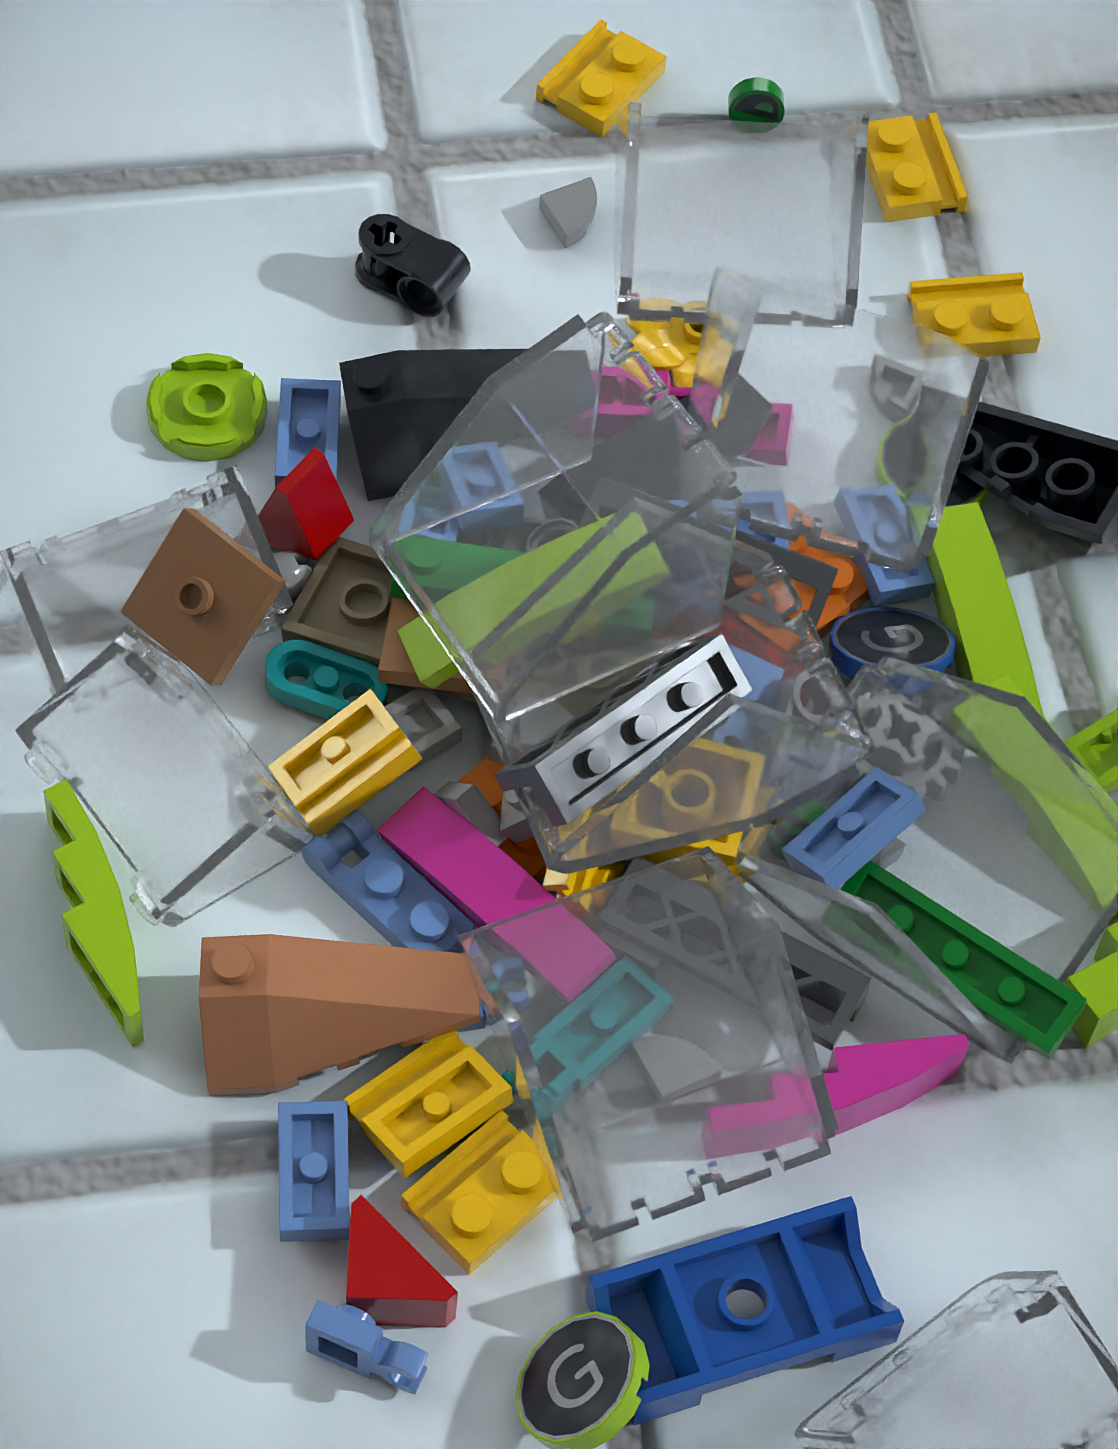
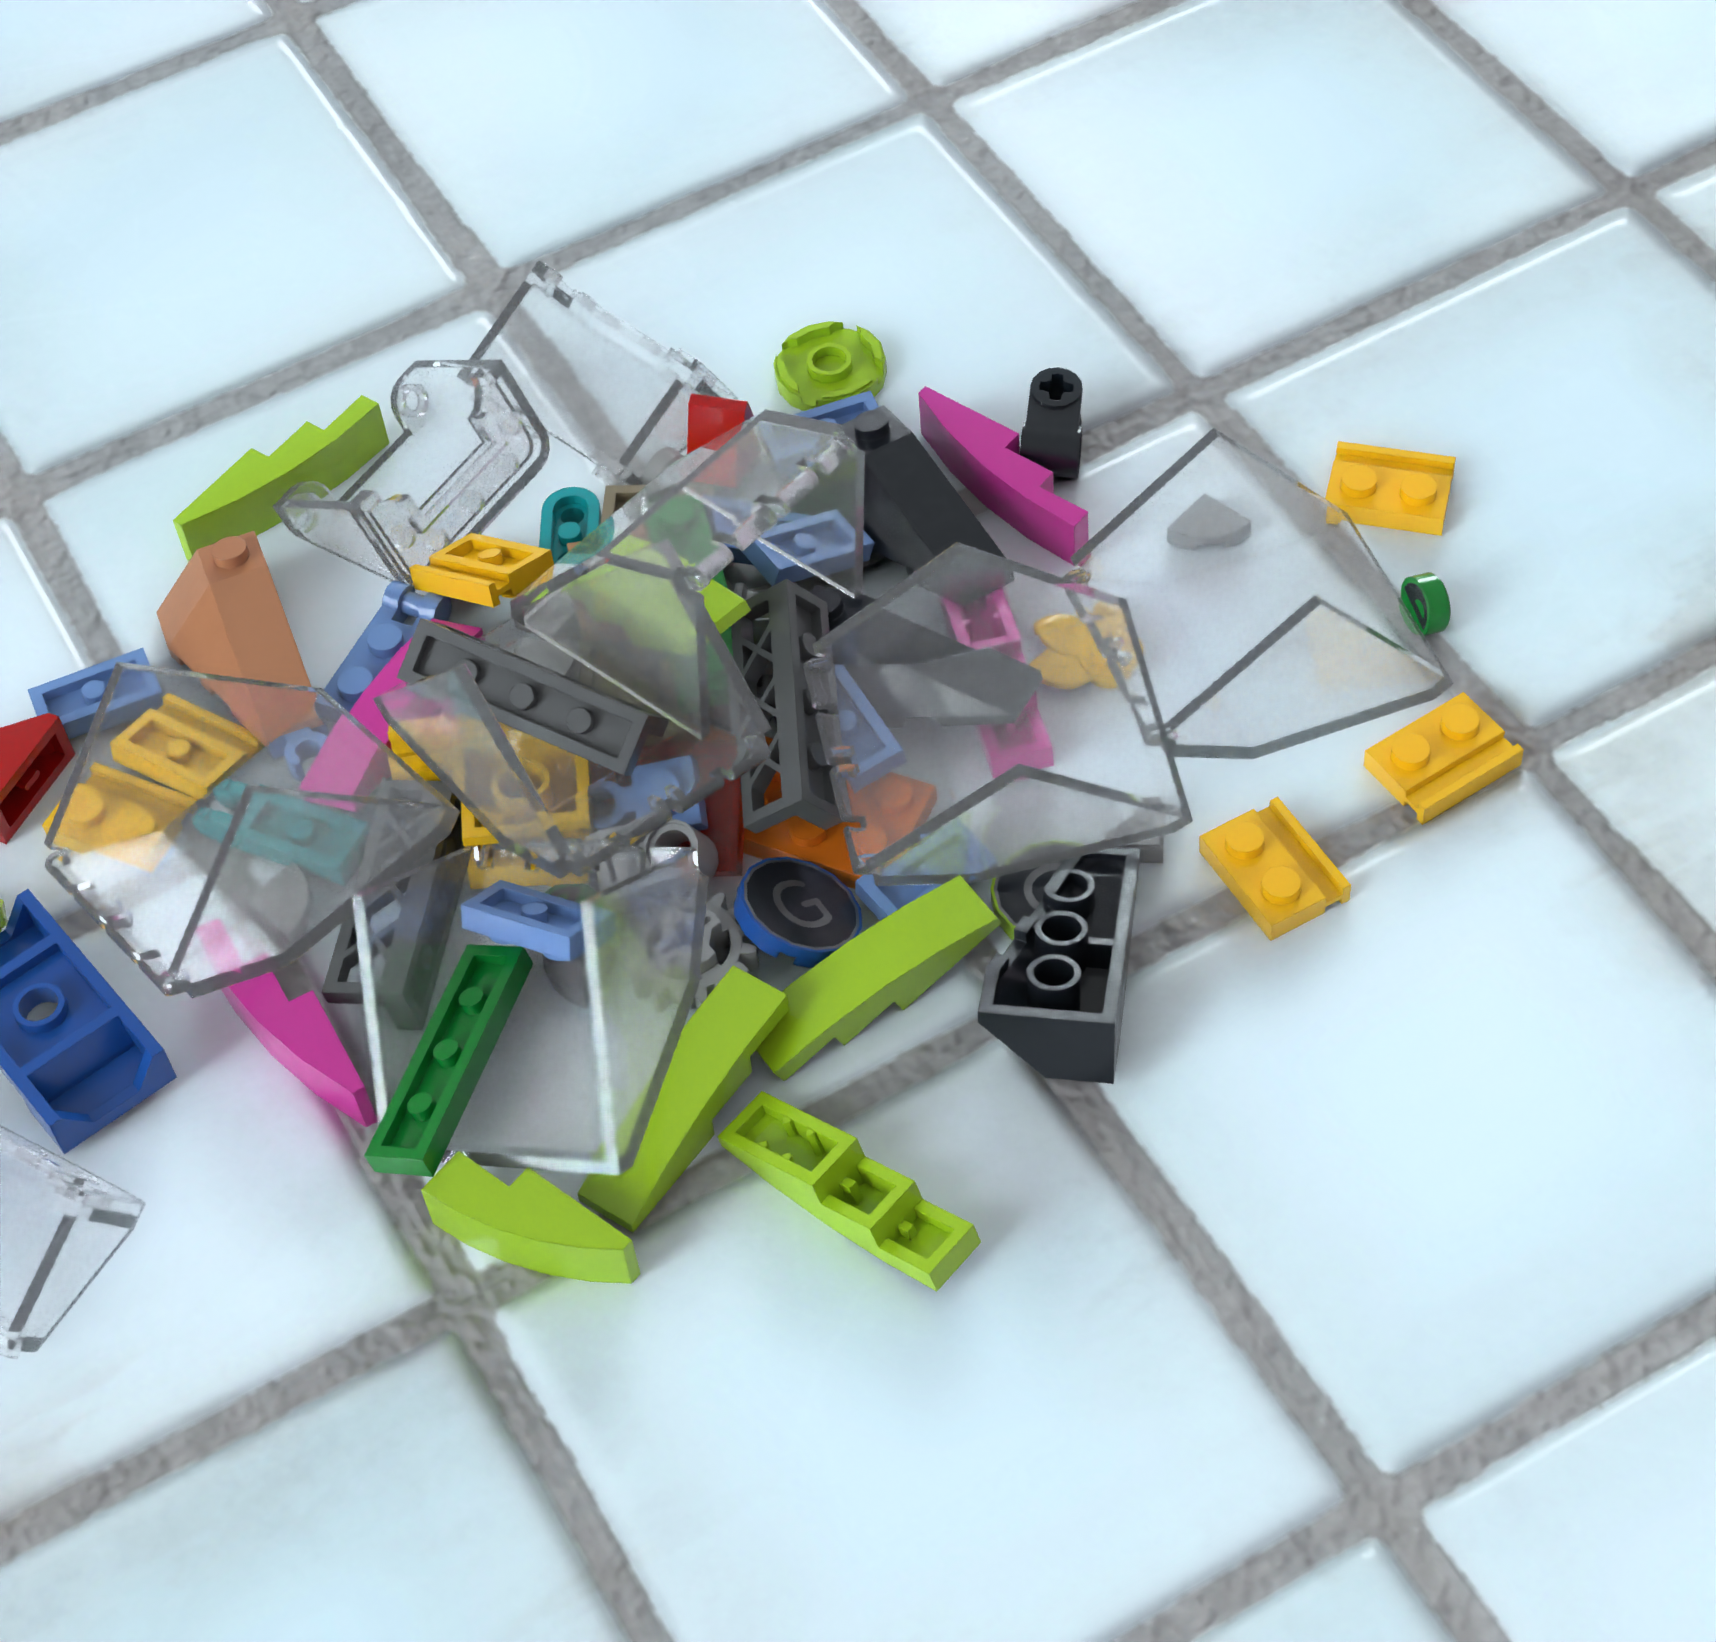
camera: 80 degrees right, 5 degrees down
(202, 596) = (597, 417): medium nougat plate -> none
(465, 319) = (990, 466): none -> dark pink slope

